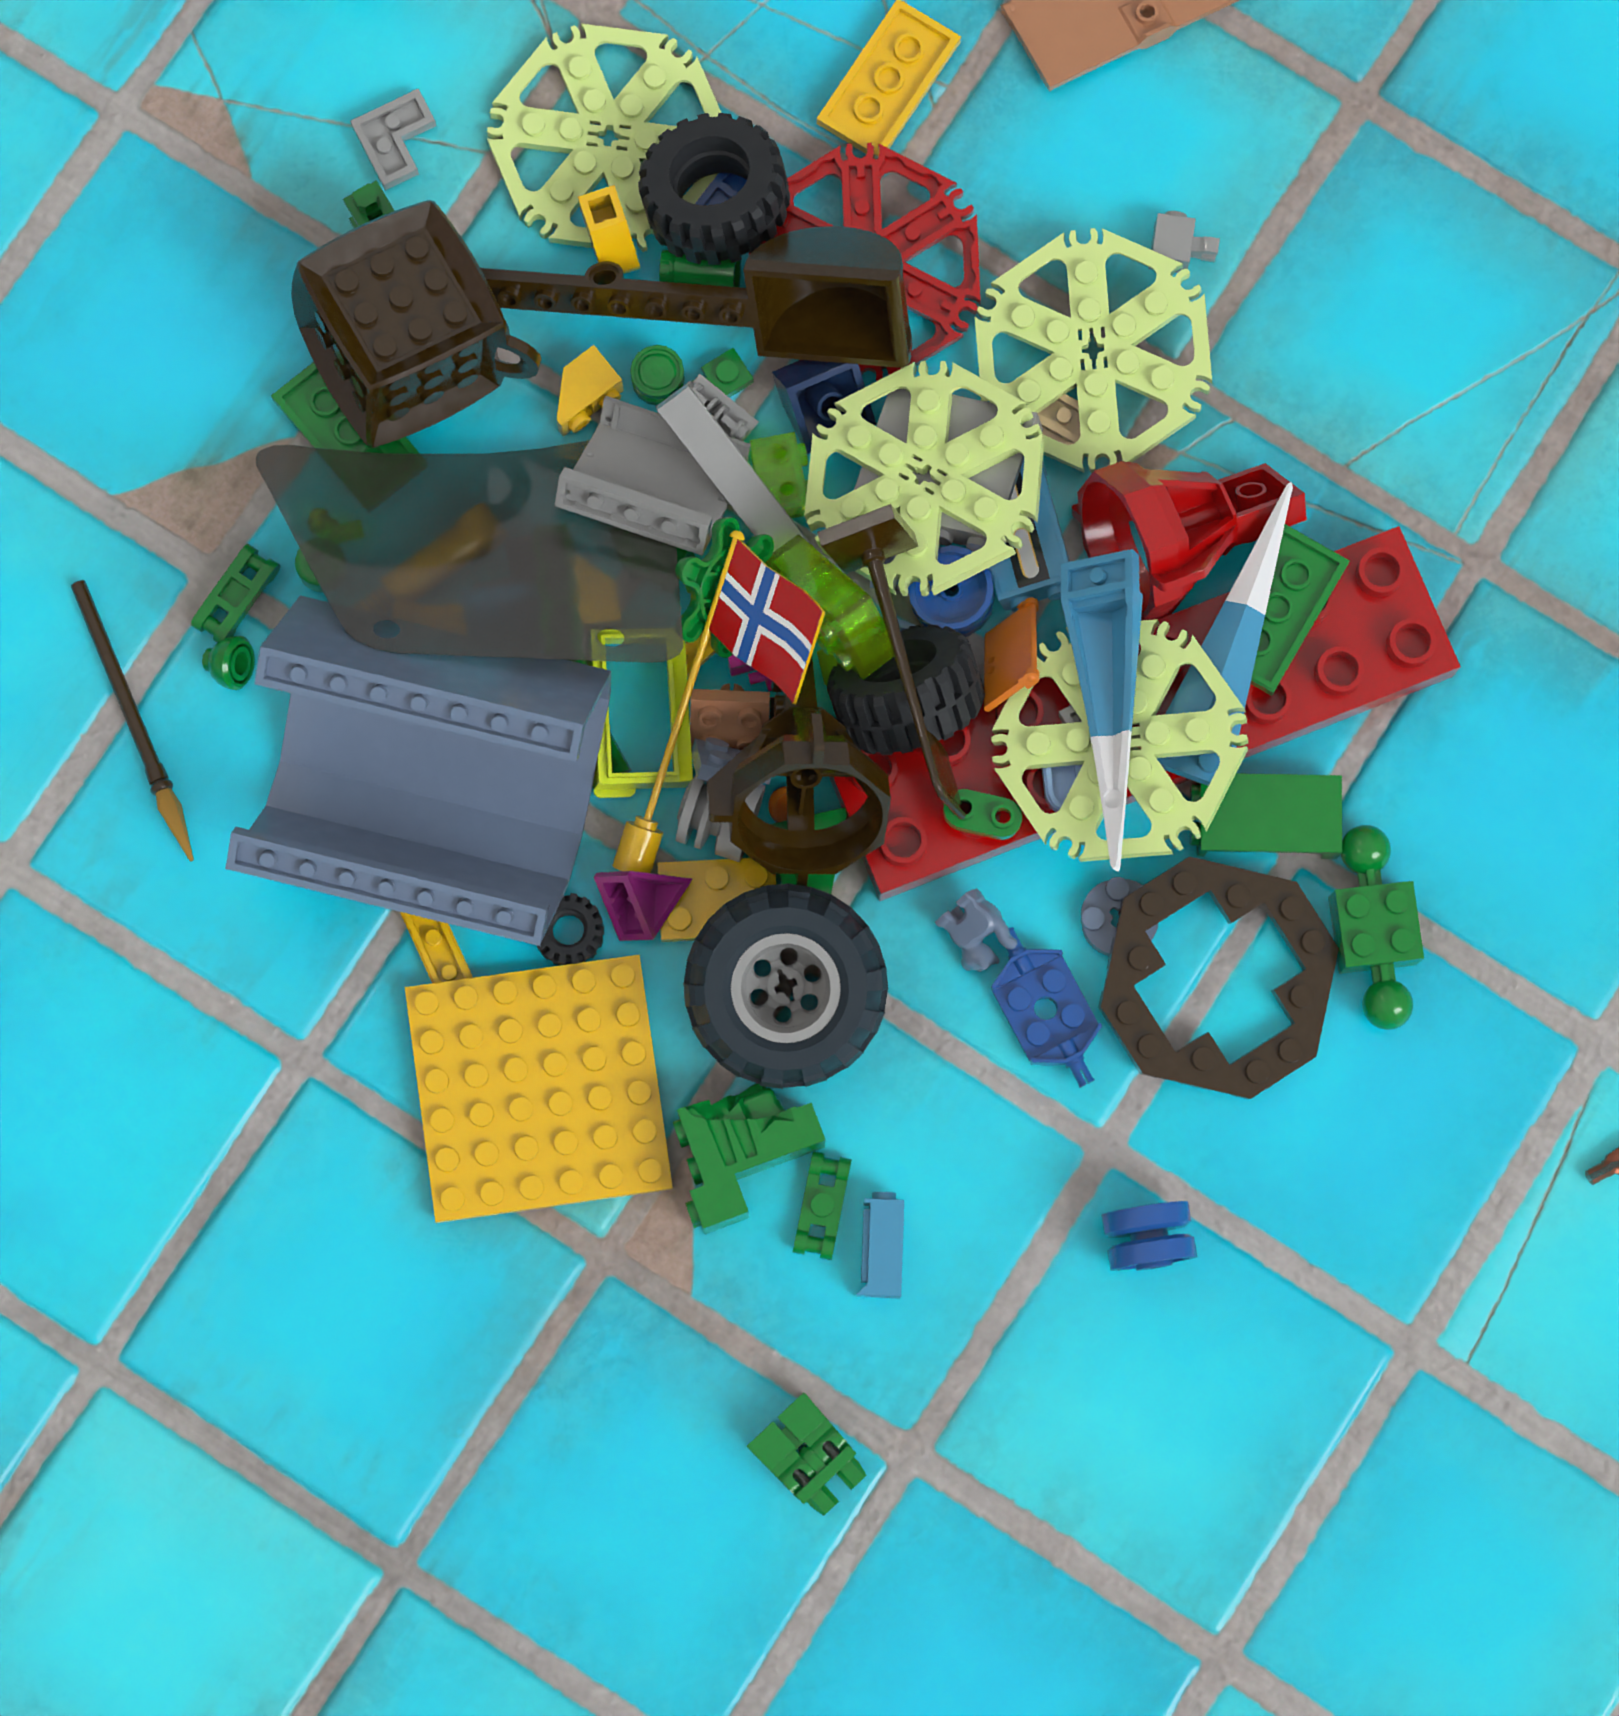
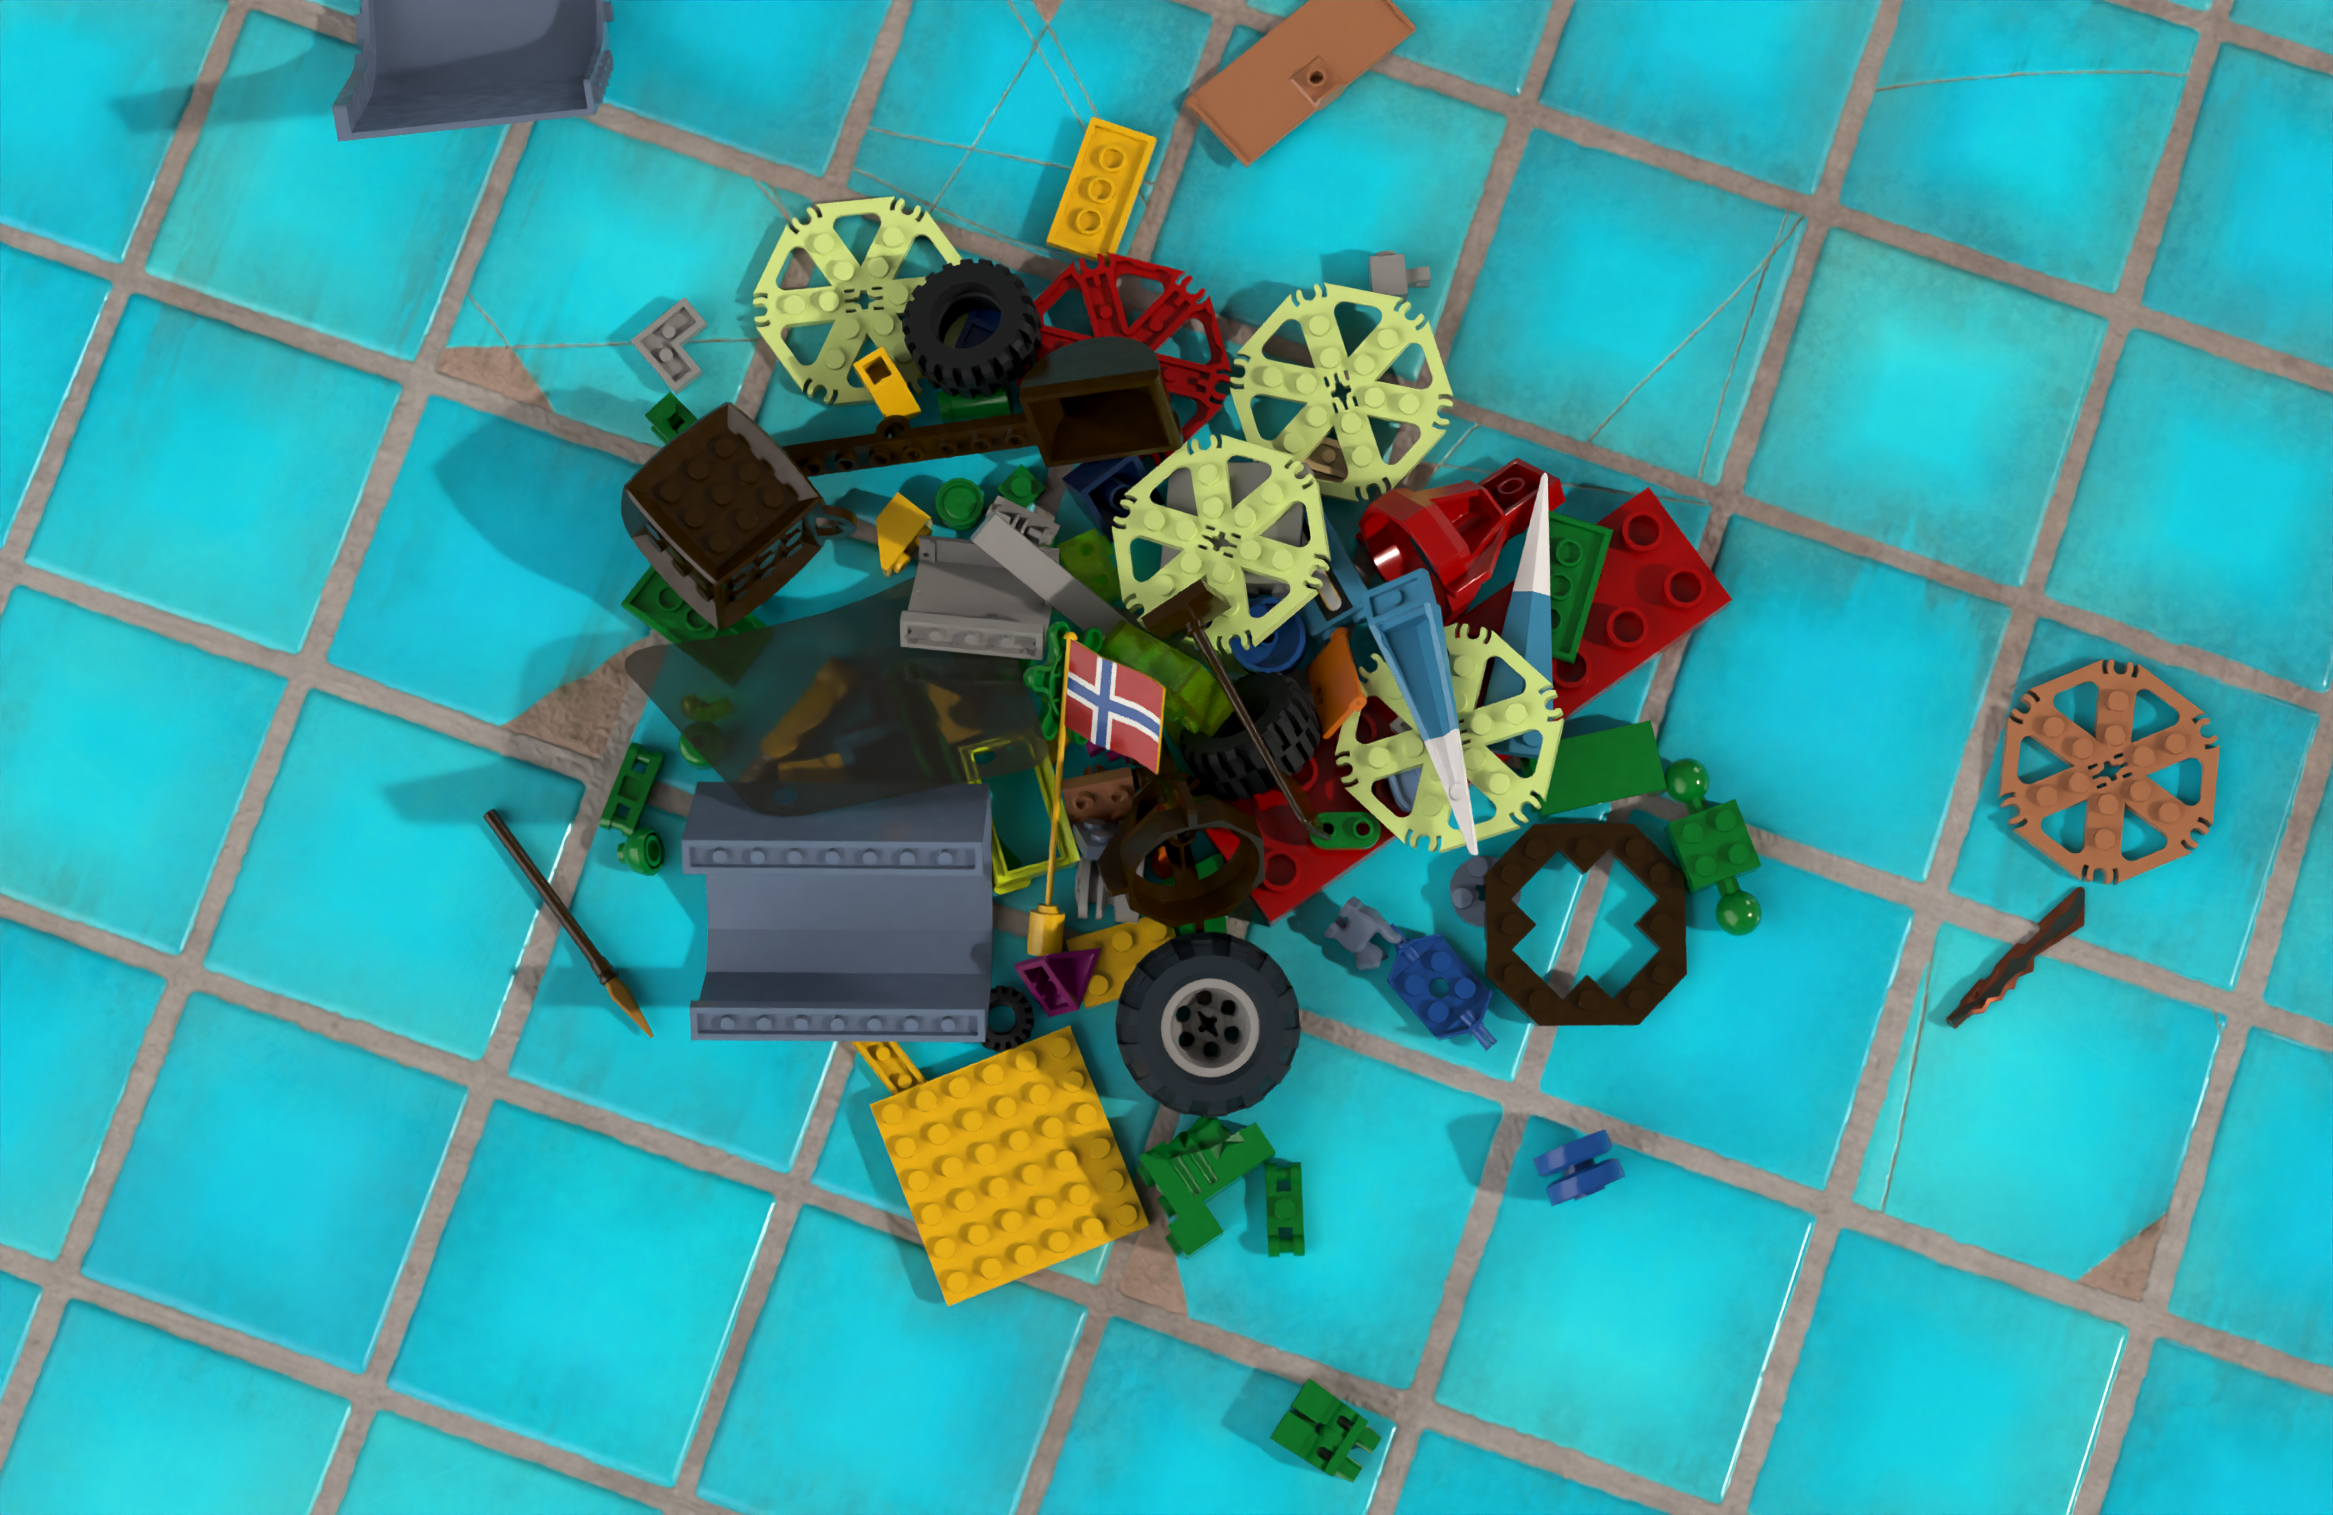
camera: 10 degrees left, 0 degrees up
(882, 1246) = (1346, 1232): dark azure window -> none

